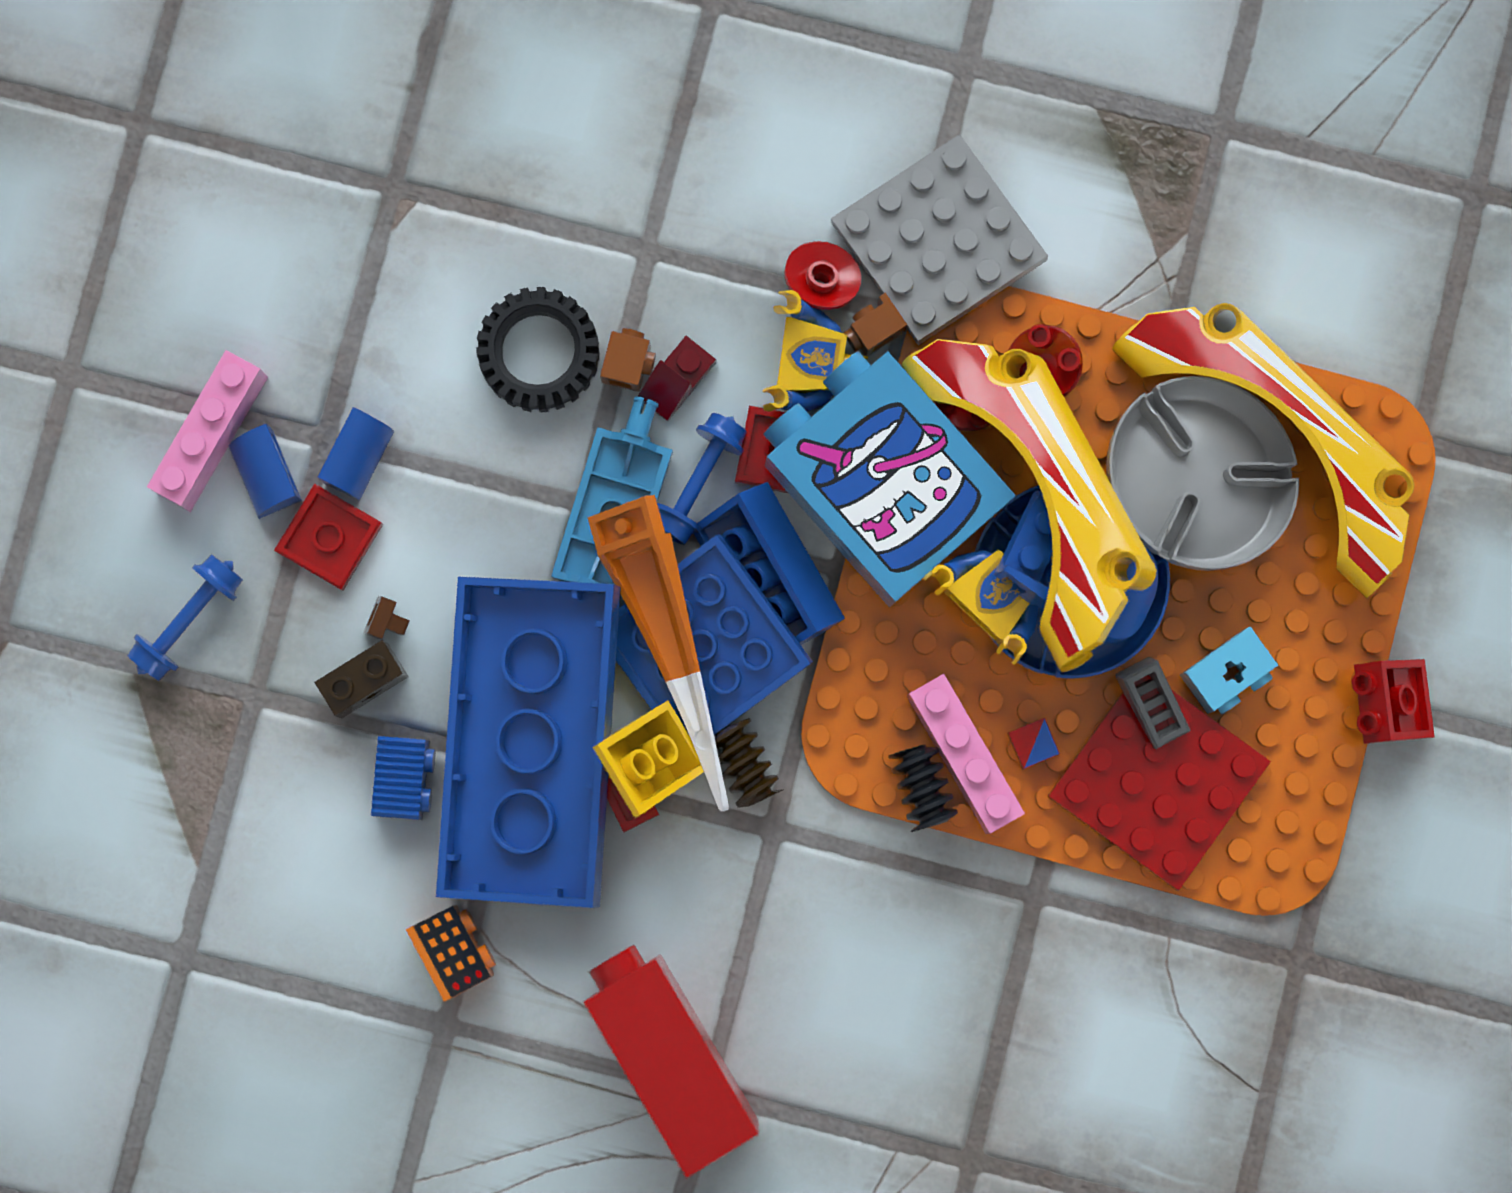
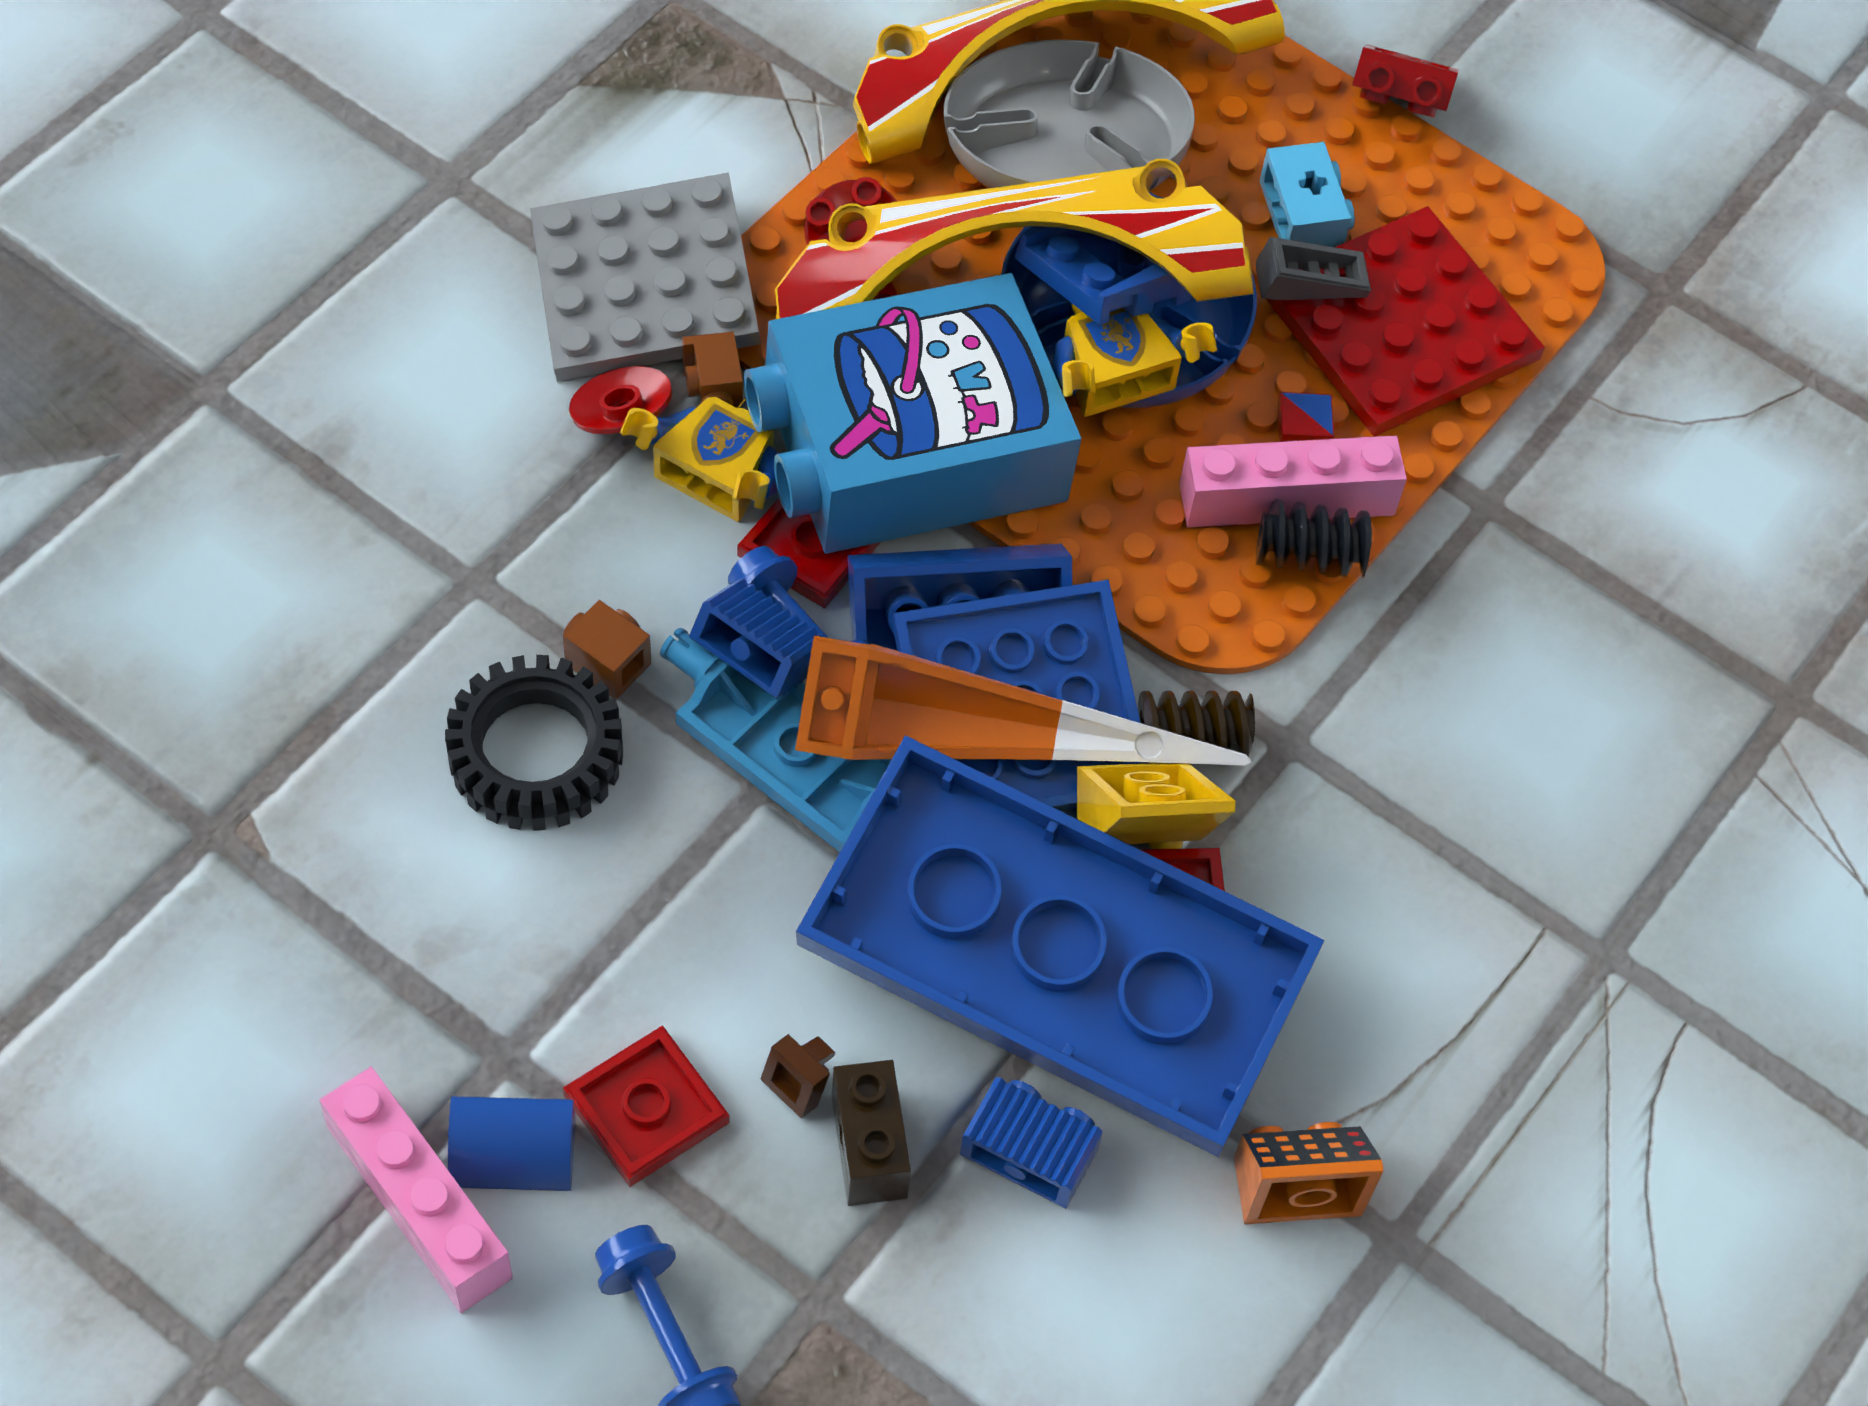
camera: 70 degrees left, 25 degrees down
(355, 454) = (550, 1016): blue brick -> none
(663, 455) = (755, 637): none -> blue brick
(670, 1060) = (1569, 921): red brick -> none
(677, 377) = (655, 601): dark red slope -> none

